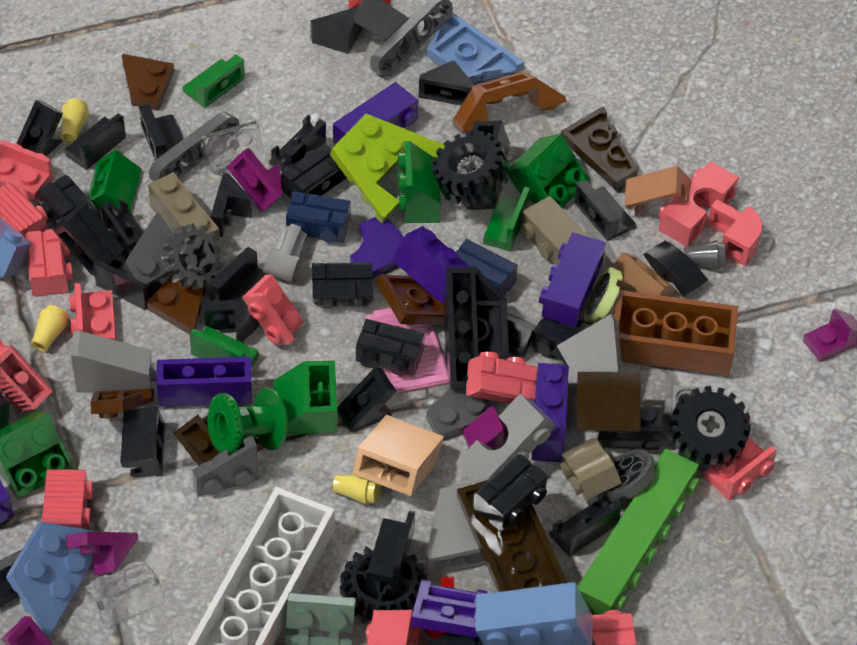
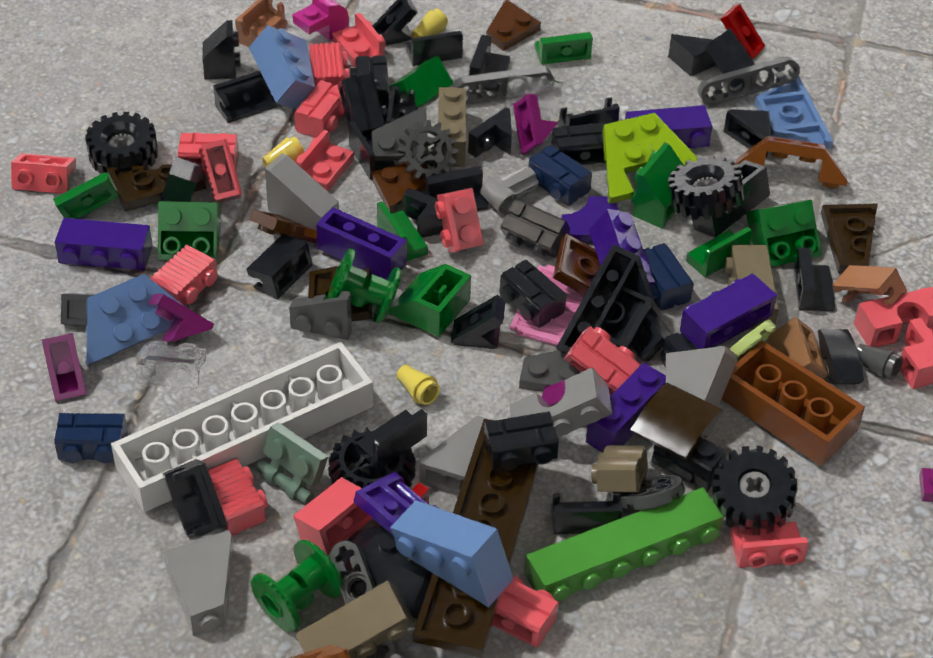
camera: 35 degrees right, 5 degrees down
(398, 455) = (465, 373): light nougat brick -> none

